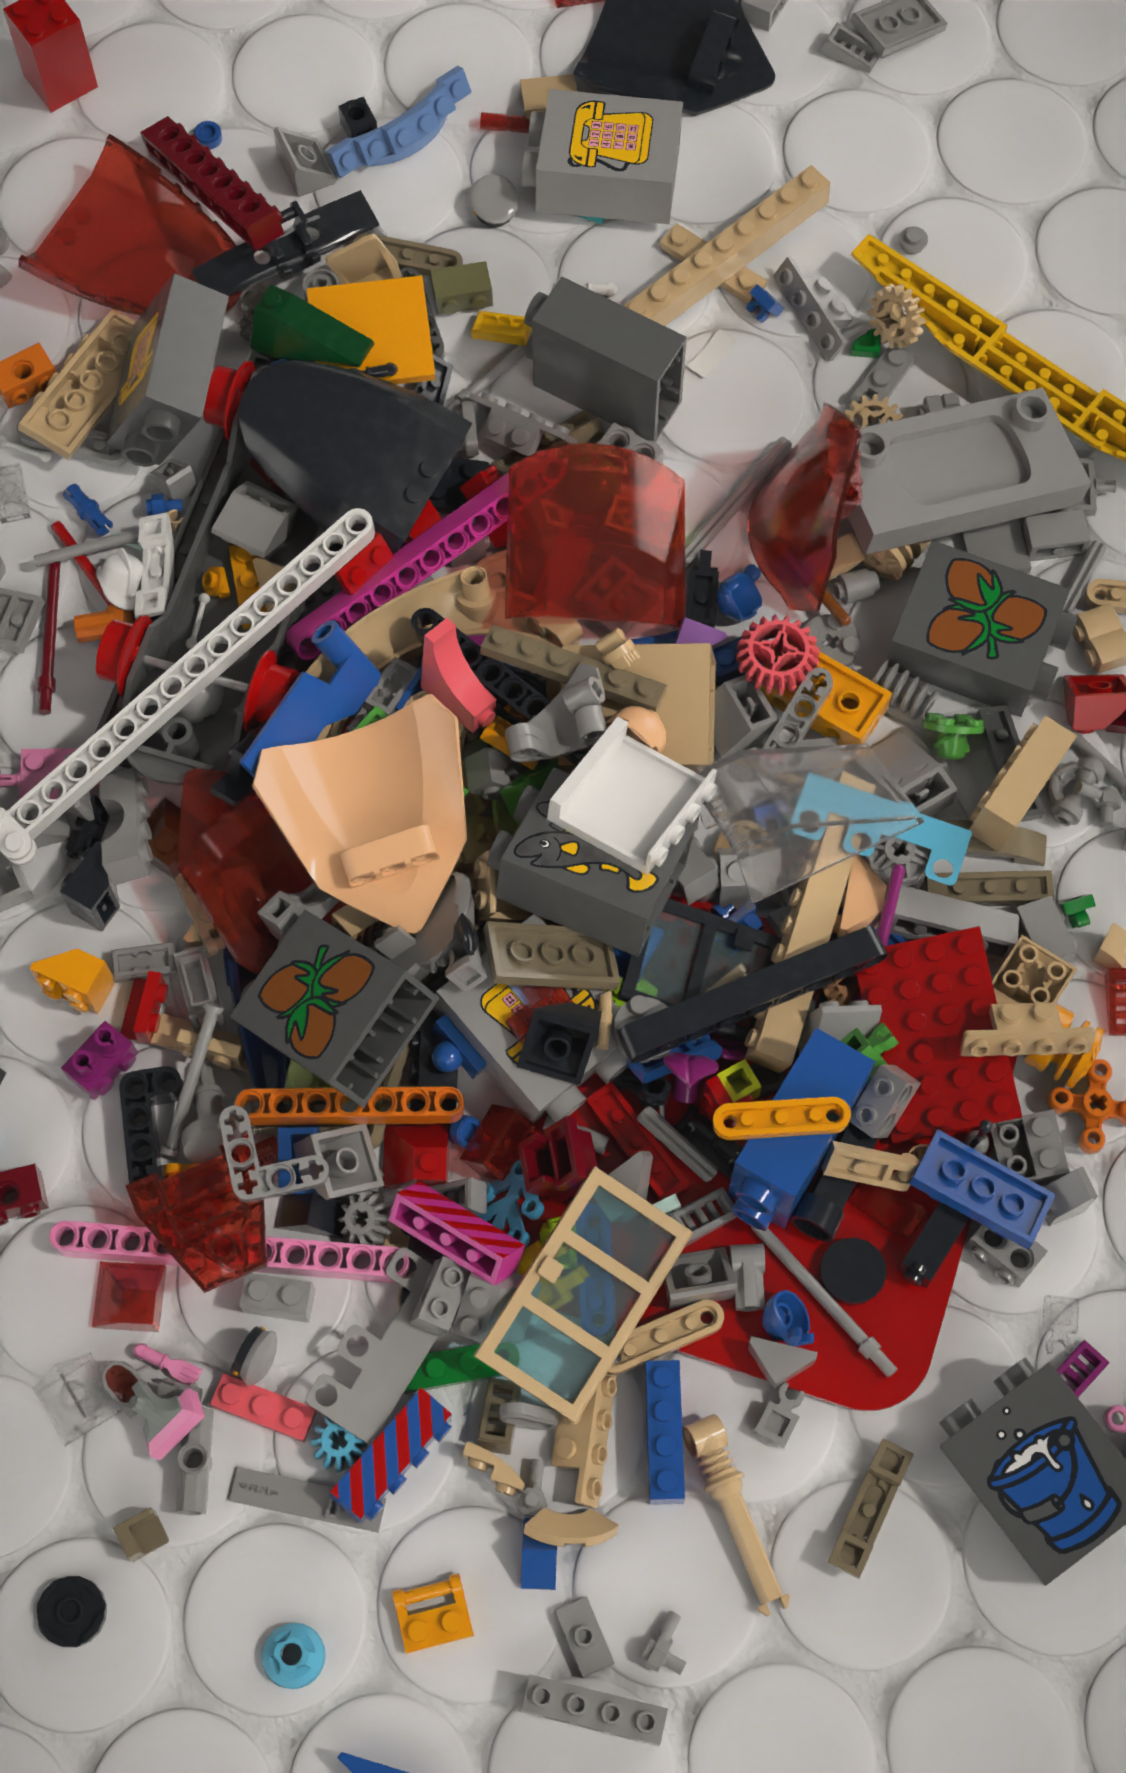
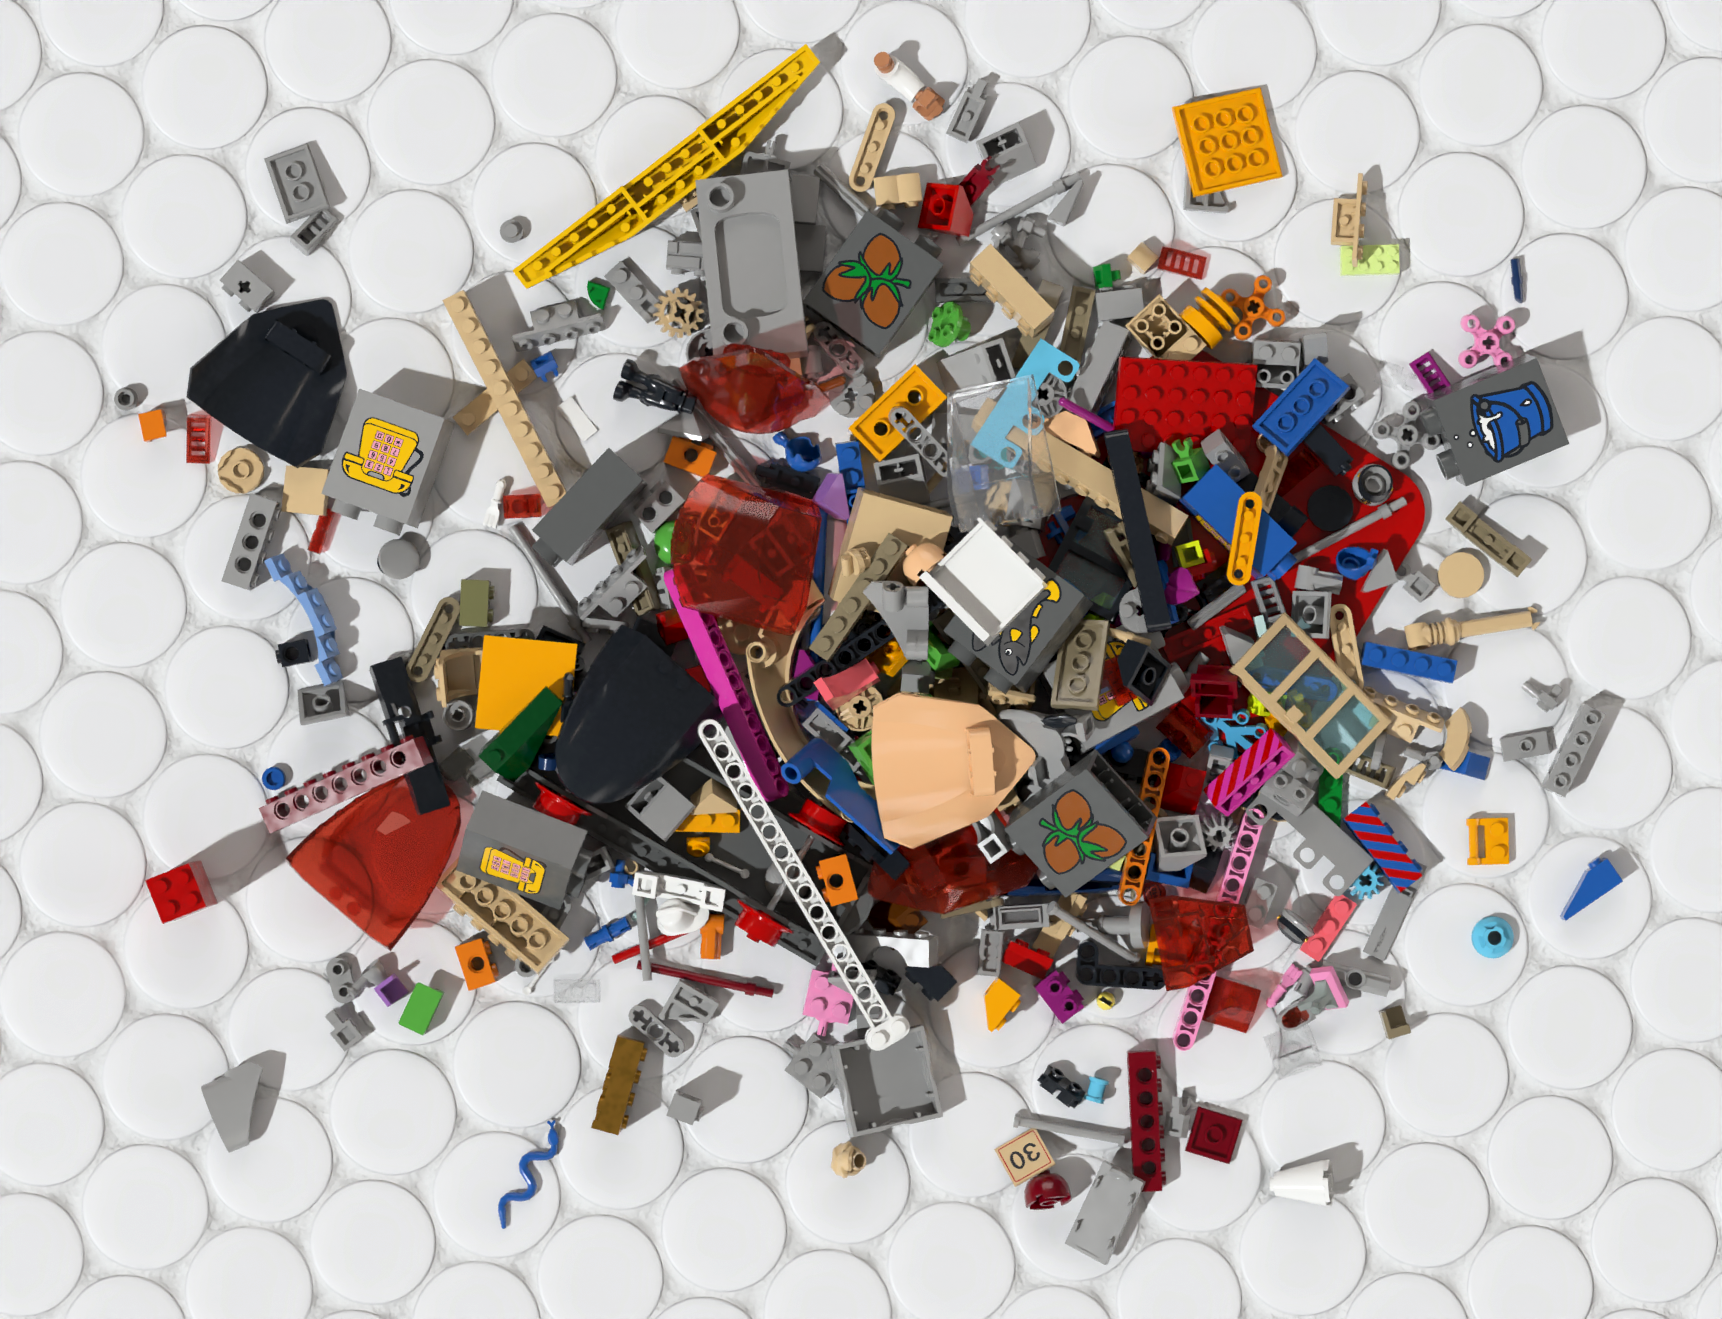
camera: 75 degrees left, 20 degrees up
(71, 1611) = (1432, 1076): black tile -> none
(111, 1127) = (1109, 996): none -> light yellow hinge
(192, 742) = (843, 893): none -> orange brick
(263, 1174) = (1183, 894): light grey beam -> none
(364, 565) = (734, 735): red plate -> none
(478, 54) = (233, 573): none -> light grey brick
(501, 328) = (519, 578): yellow plate -> none
(556, 36) = (240, 470): none -> tan tile
(702, 461) = (676, 456): none -> orange brick
(737, 461) = (685, 426): none -> light grey slope
(755, 645) = (878, 424): coral gear -> none
(767, 425) = (659, 392): none -> black piece
(808, 1482) = (1460, 575): none -> tan tile
(880, 623) = (823, 341): none -> light grey beam
(896, 316) = (593, 269): tan gear -> none
(902, 1323) = (1372, 484): none -> light grey piece
(905, 691) = (907, 351): light grey piece -> none
(969, 1355) = (1396, 433): none -> light grey gear
(978, 1137) = (1261, 398): hinge -> none
(1026, 1031) = (1202, 347): tan bracket -> none

